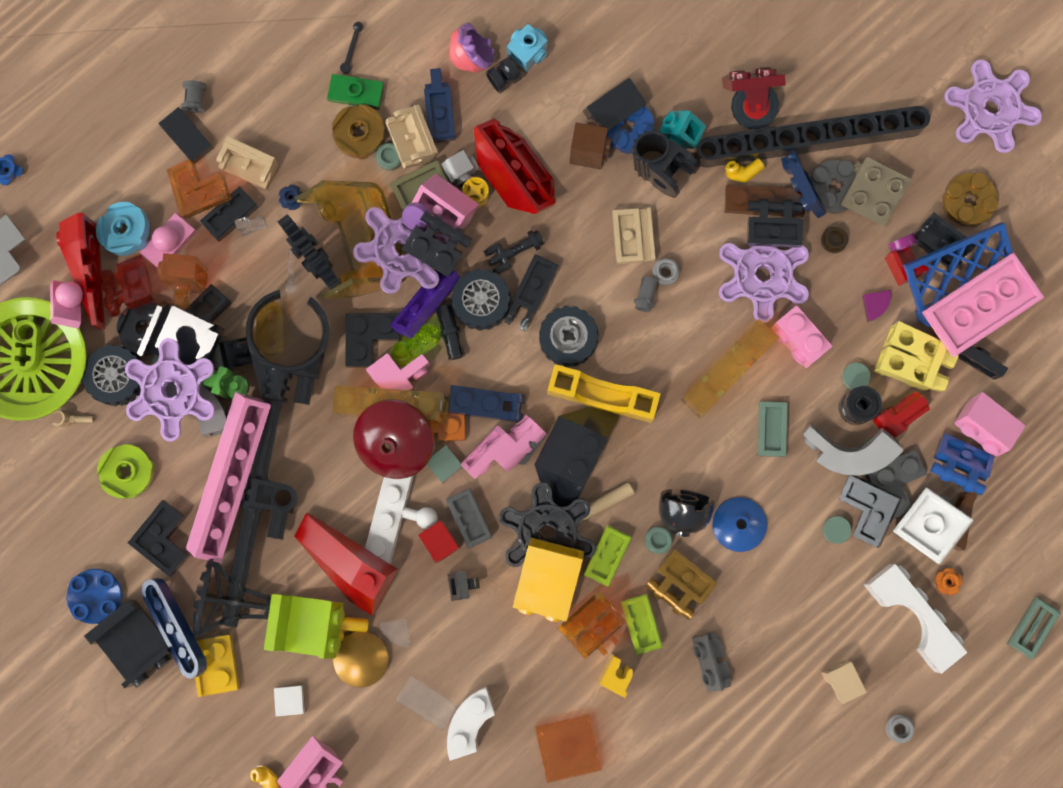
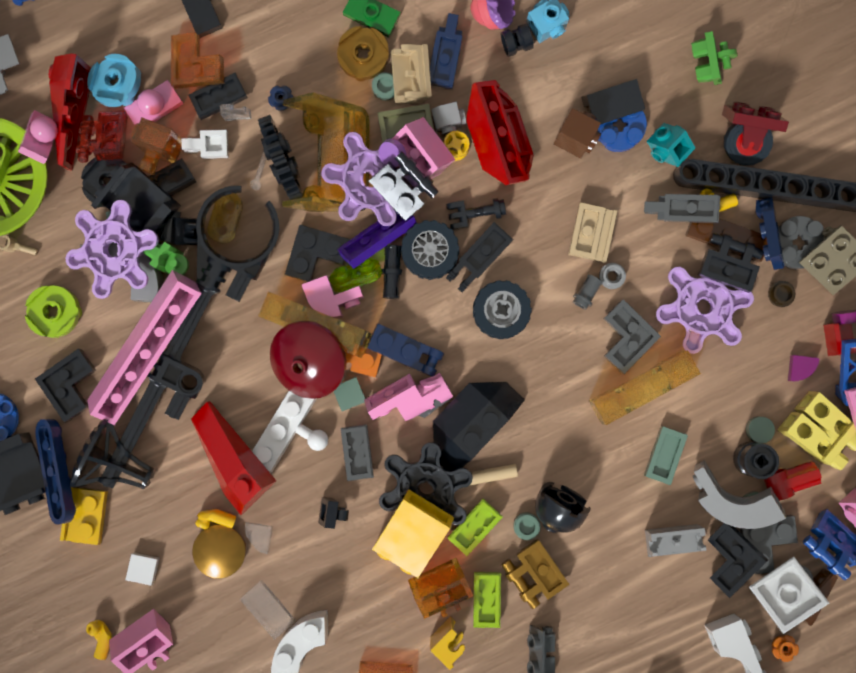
camera: 20 degrees right, 5 degrees up
(107, 378) = (57, 217): black wheel -> none
(236, 262) = (211, 144): none -> white plate
(247, 163) = (249, 52): tan hinge -> none
(304, 626) = (175, 506): lime panel -> none
(438, 541) = (322, 467): red panel -> none
(611, 397) = (518, 375): yellow arch -> none
(672, 159) = (638, 178): black piece -> none
(688, 28) = (707, 47): none -> bright green hips
(706, 323) = (635, 334): none -> dark grey plate
(715, 185) = (685, 208): none -> dark grey hinge
(727, 531) = (597, 525): blue dish -> none
(801, 337) = (721, 378): bright pink brick -> none
(807, 509) = (675, 540): none -> light grey hinge
(836, 530) = (695, 567): sand green tile -> none

